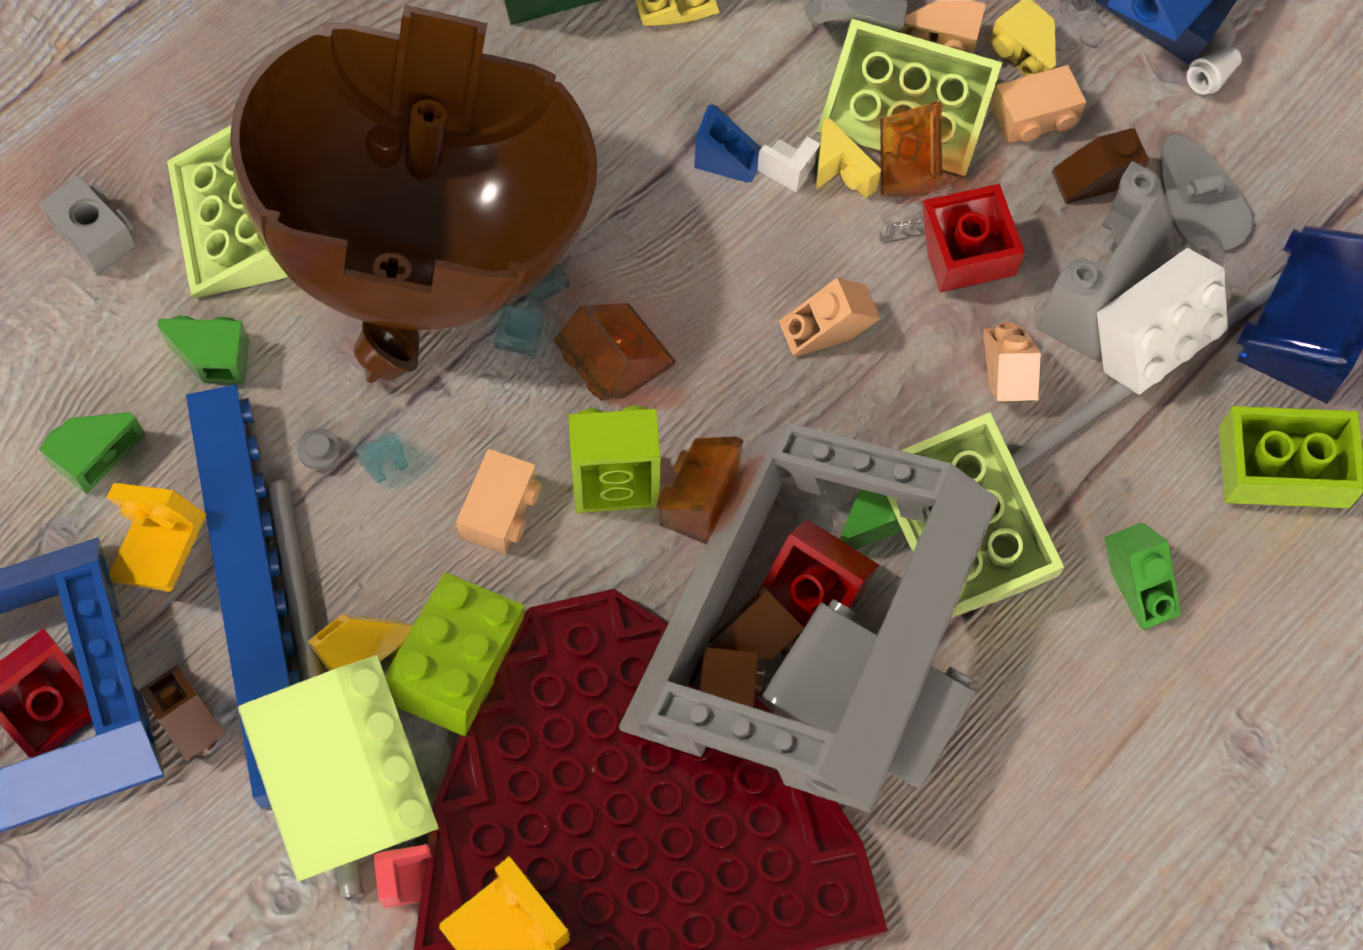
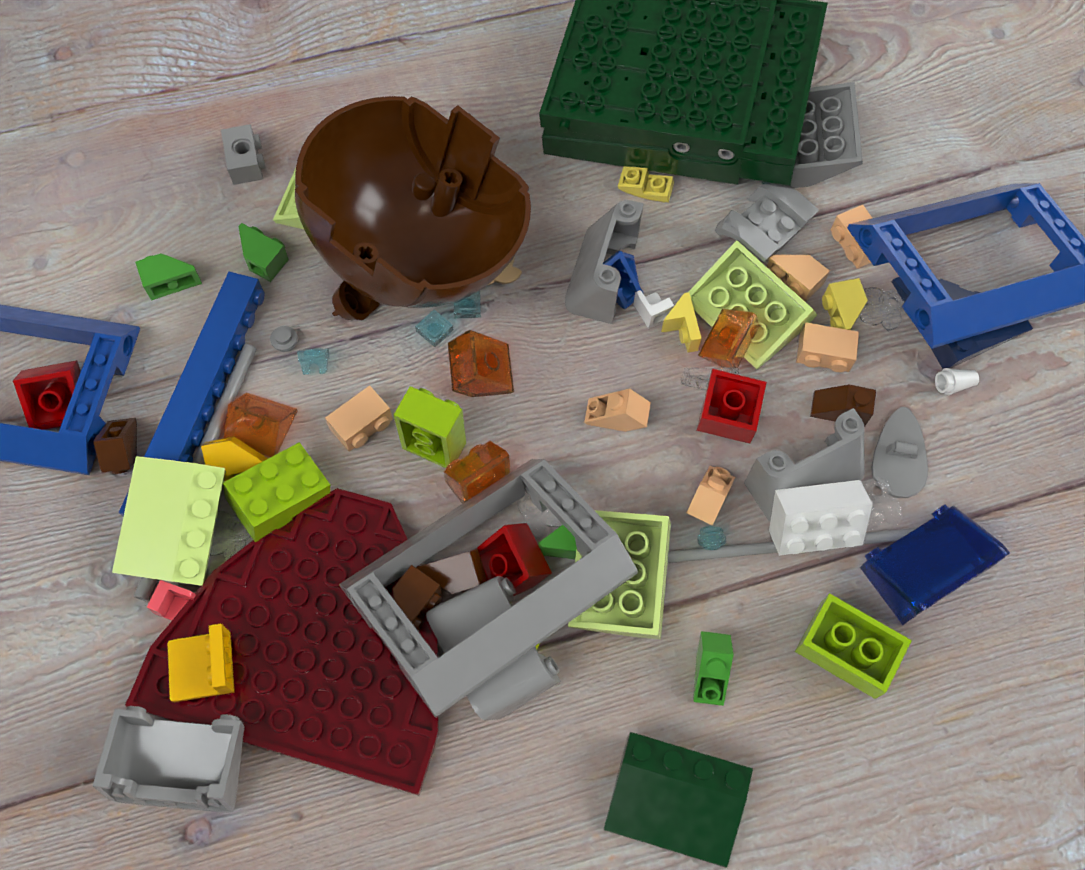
camera: 30 degrees right, 0 degrees up
(158, 537) = (166, 343): yellow bracket -> none
(361, 579) = (259, 422): none -> clear orange slope
(695, 168) = (596, 285): none -> light grey windscreen
(1044, 417) = (711, 537): none -> clear light blue plate
(1199, 754) = (678, 799): none -> dark green slope

